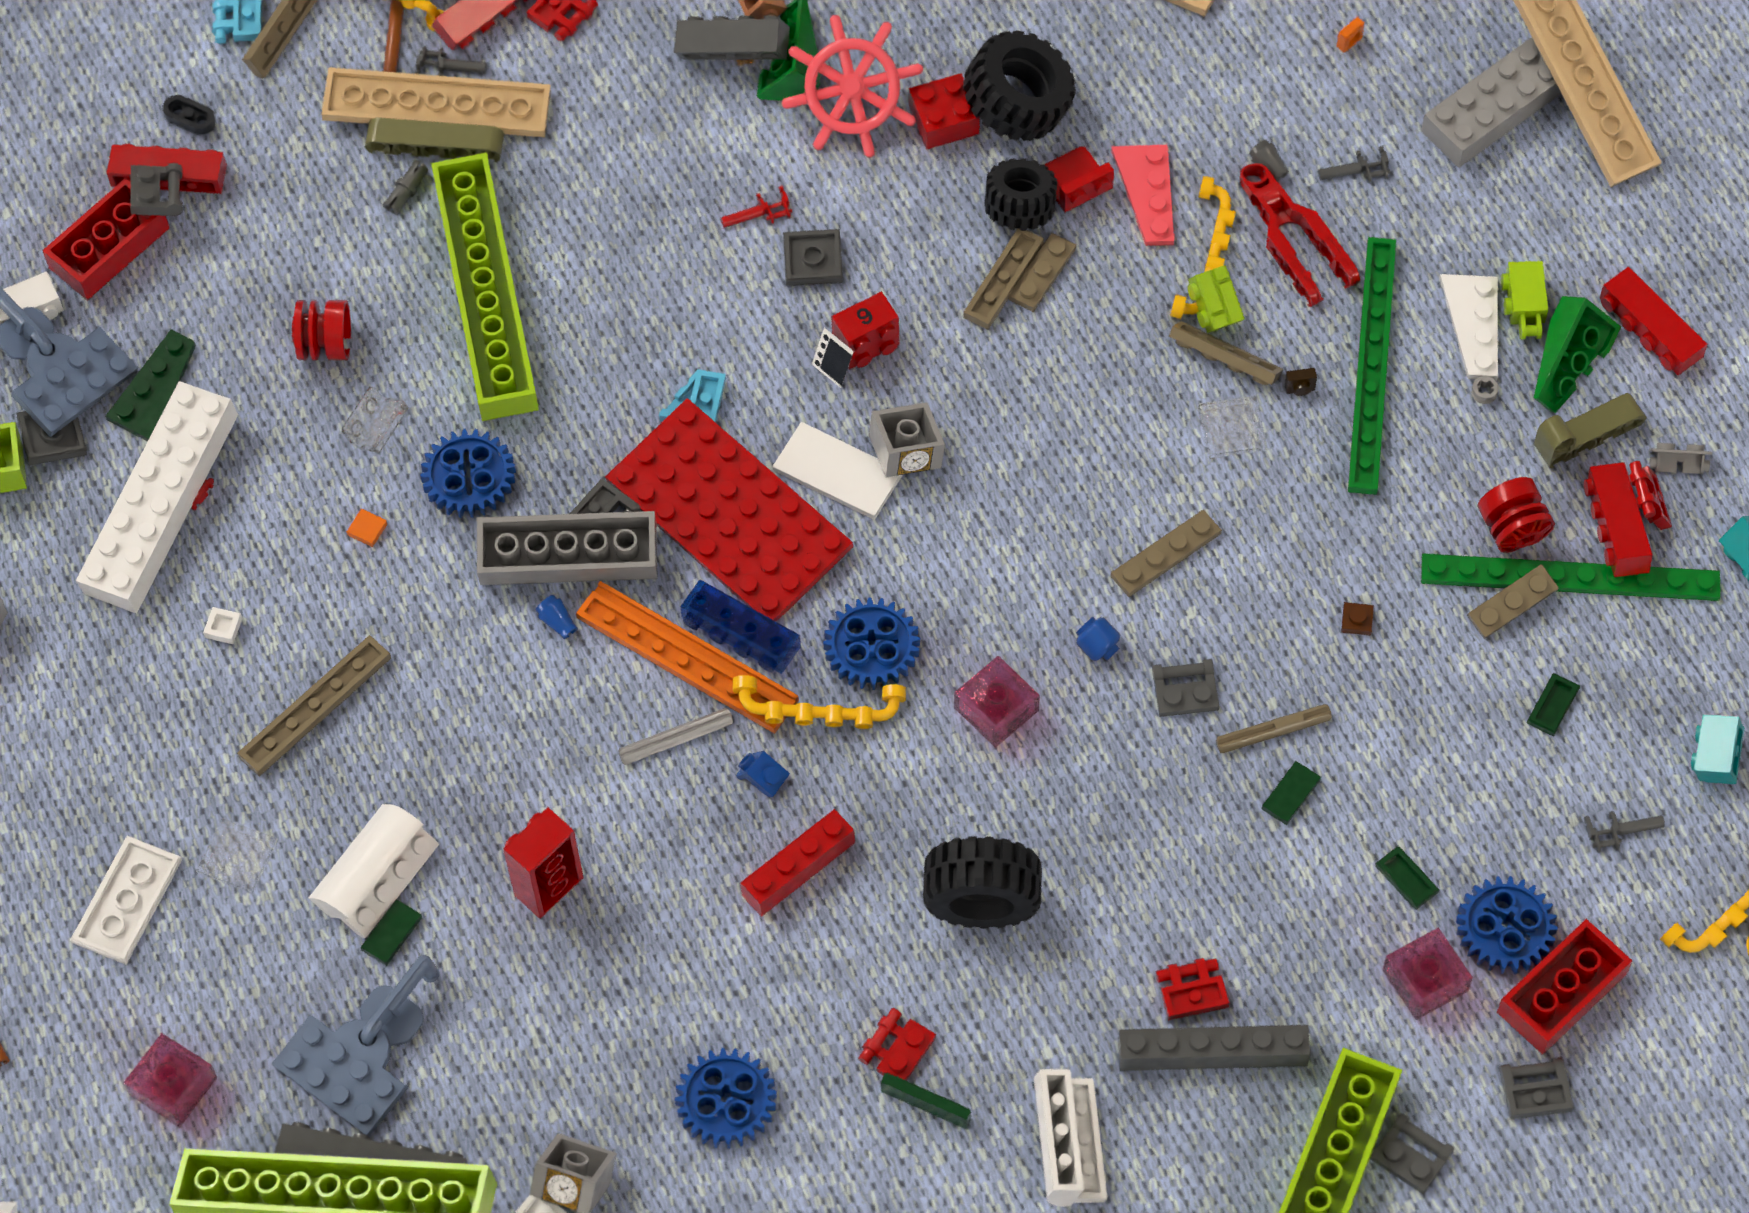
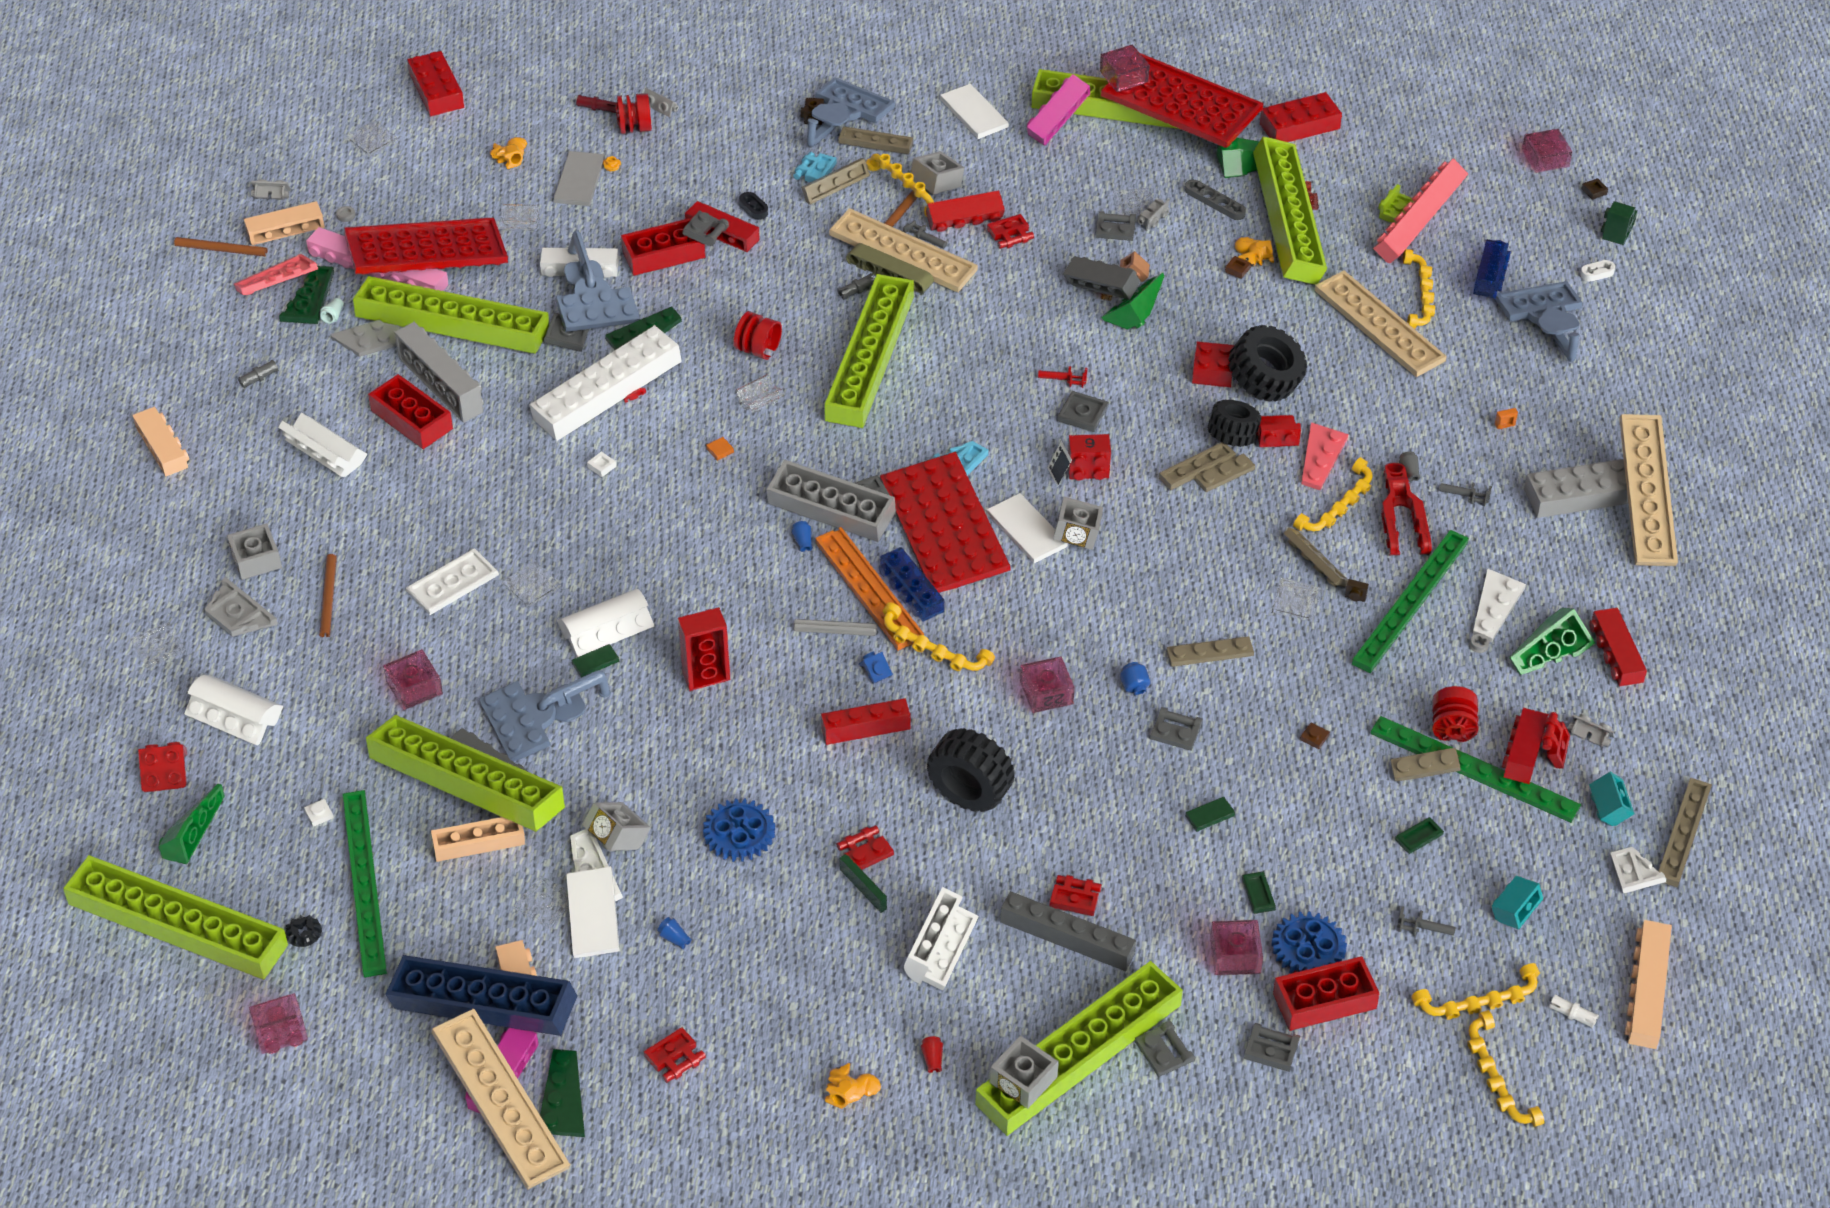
camera: 25 degrees right, 15 degrees down
(314, 705) = (627, 525): dark tan plate -> none
(440, 476) = (810, 440): blue gear -> none
(852, 86) = (1161, 326): coral piece -> none
(872, 667) = (988, 625): blue gear -> none
(1215, 299) = (1326, 523): lime brick -> none
(1273, 728) = (1220, 773): dark tan axle -> none
(1526, 296) = (1538, 601): lime brick -> none
(1564, 440) = (1534, 690): olive beam -> none

